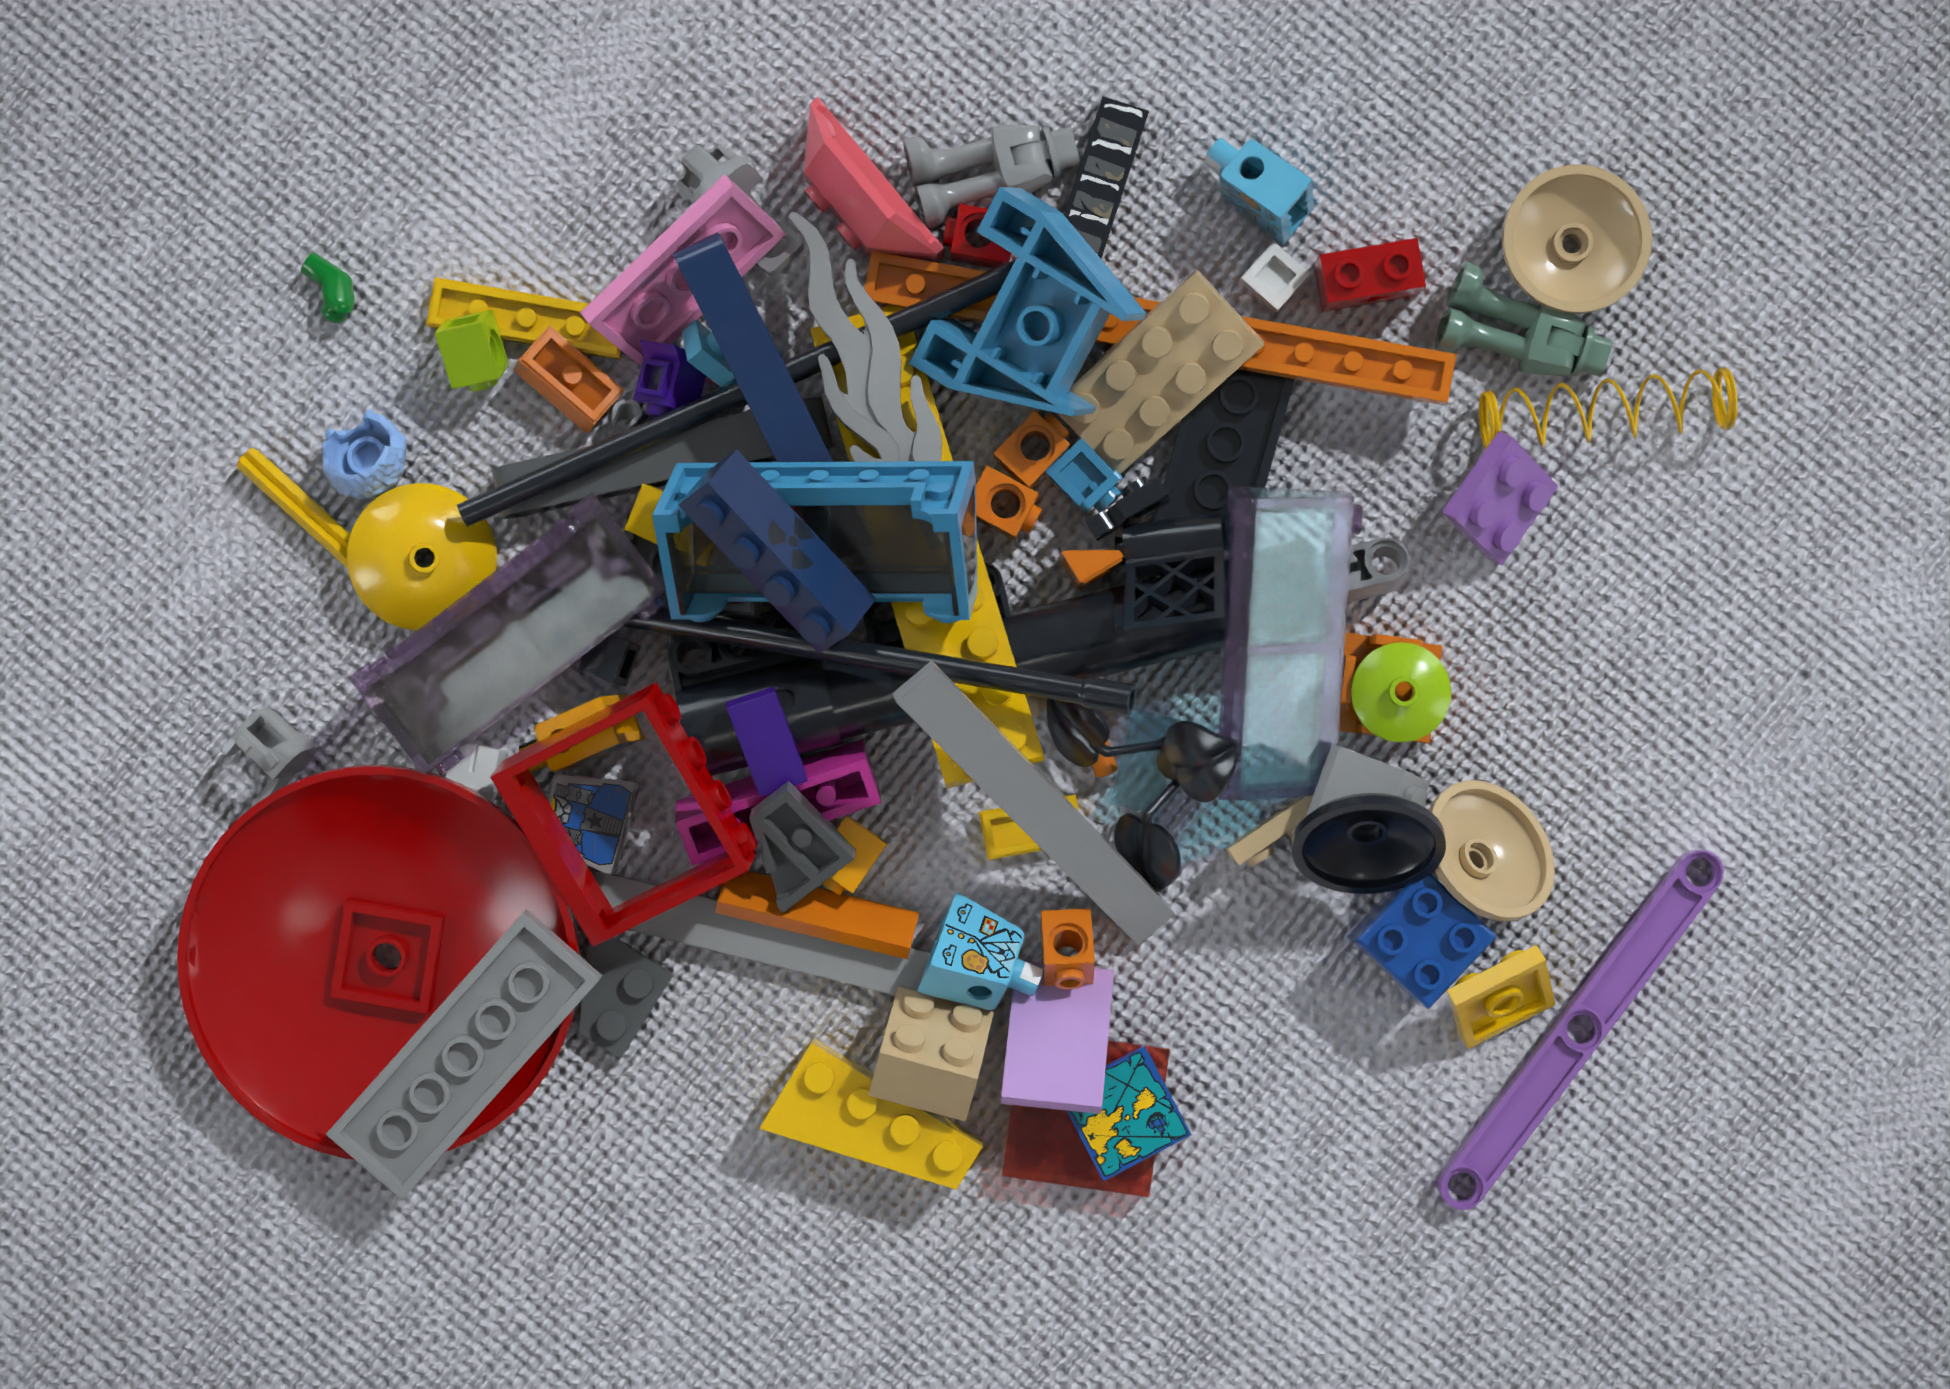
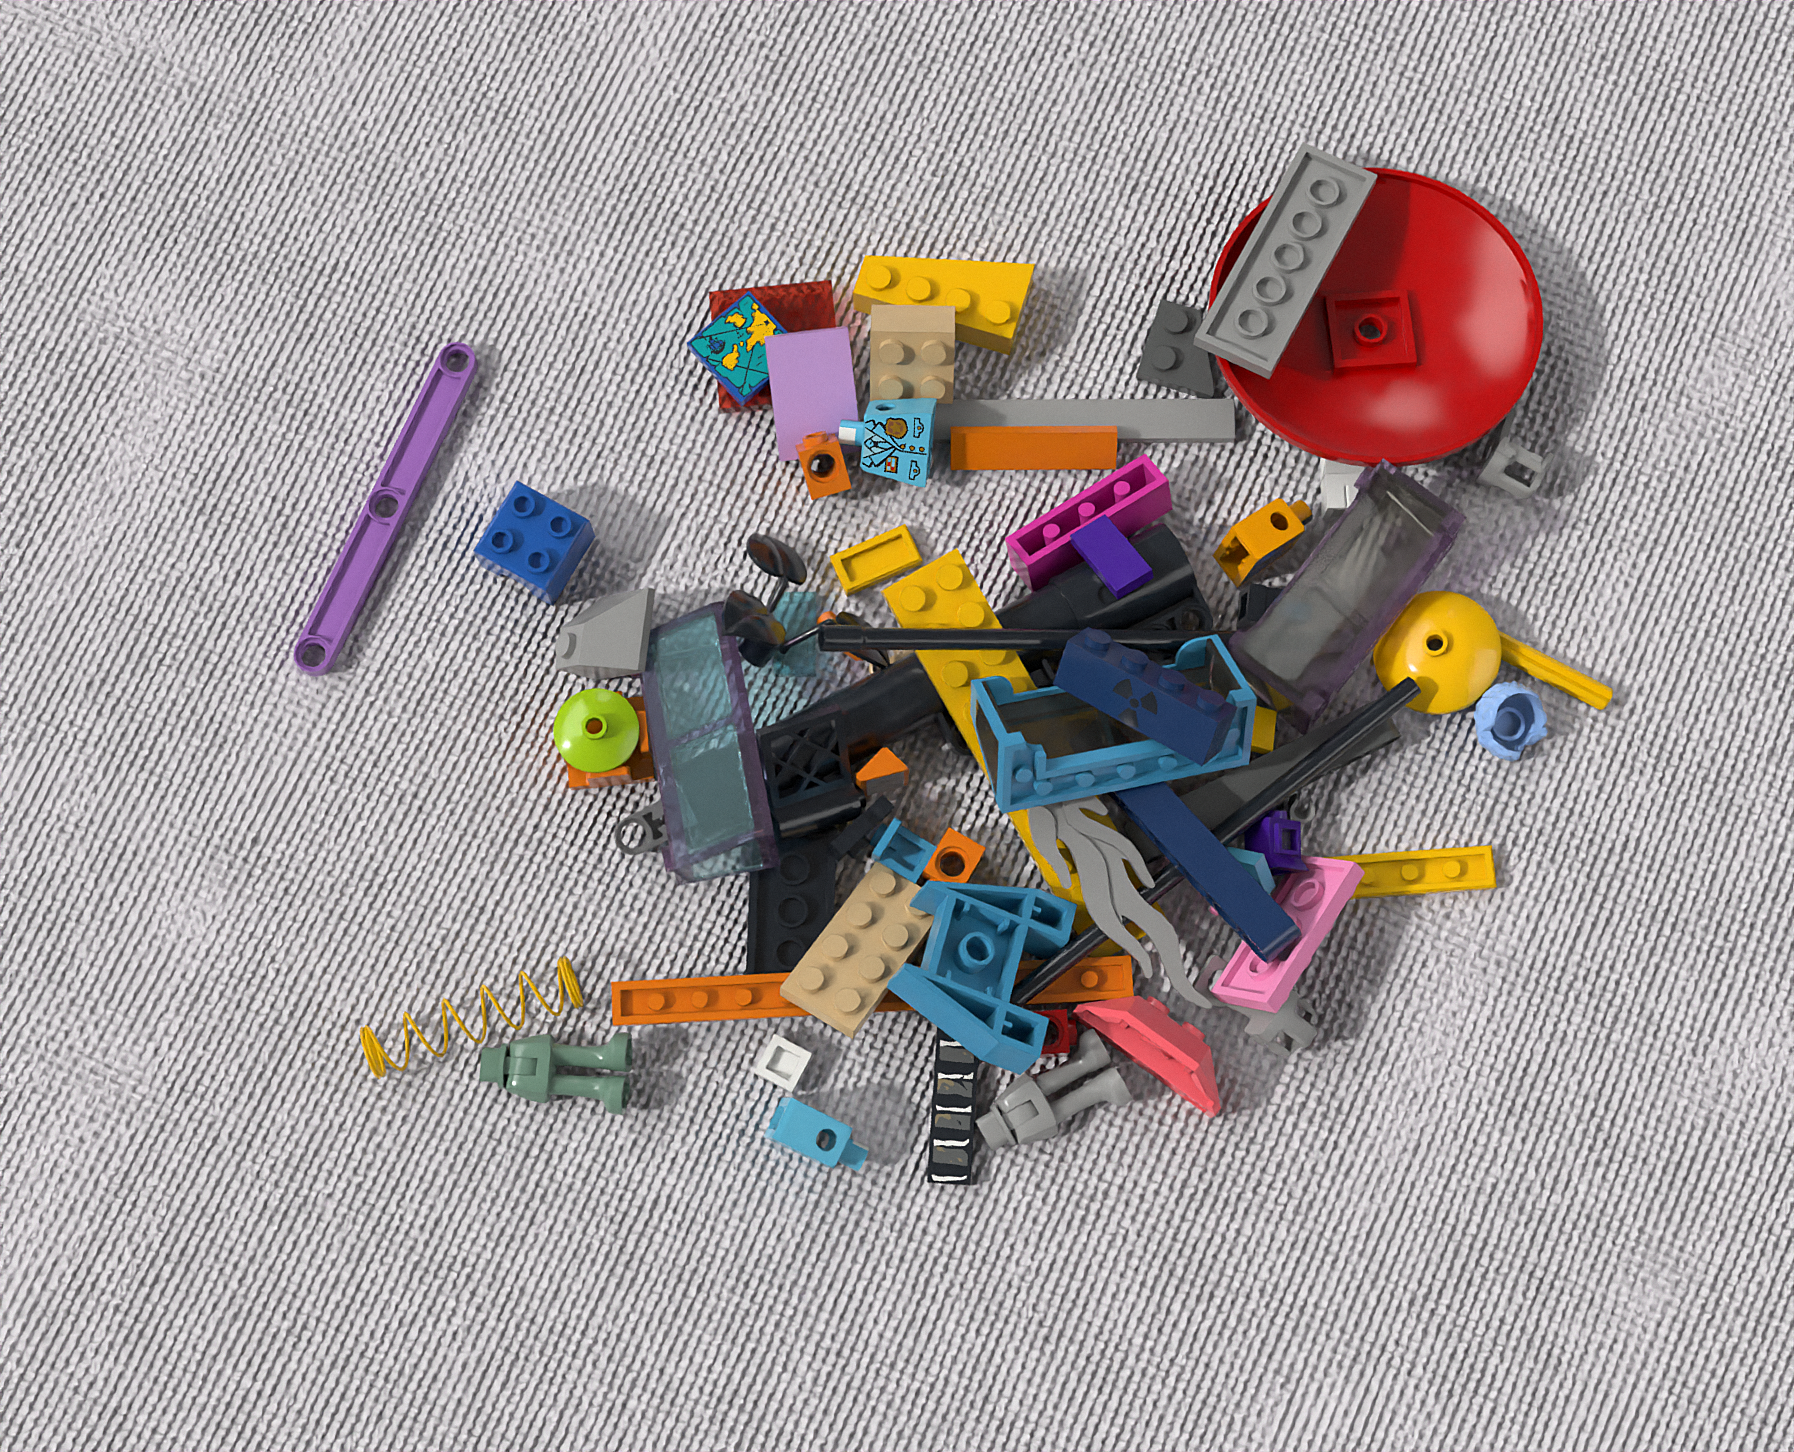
camera: 165 degrees right, 10 degrees down
(336, 287) = (1576, 858): green arm -> none
(472, 350) = (1446, 829): lime brick -> none
(560, 854) = (1246, 425): red window -> none
(568, 379) = (1358, 828): orange slope -> none
(595, 816) = (1243, 476): torso -> none
(797, 844) = (1064, 486): dark grey wing -> none
(868, 850) = (1019, 497): light orange brick -> none
(995, 483) = (985, 807): orange brick -> none
(1032, 801) = (881, 555): light grey tile -> none
(1257, 842) = (687, 589): tan plate -> none
(1368, 843) = (597, 591): black dish -> none
(1369, 275) = (702, 1082): red brick -> none
(1494, 851) = (479, 634): tan dish -> none
(1500, 498) = (547, 916): medium lavender plate -> none
(1501, 996) = (458, 509): yellow plate -> none
(1602, 219) = (498, 1153): tan dish -> none

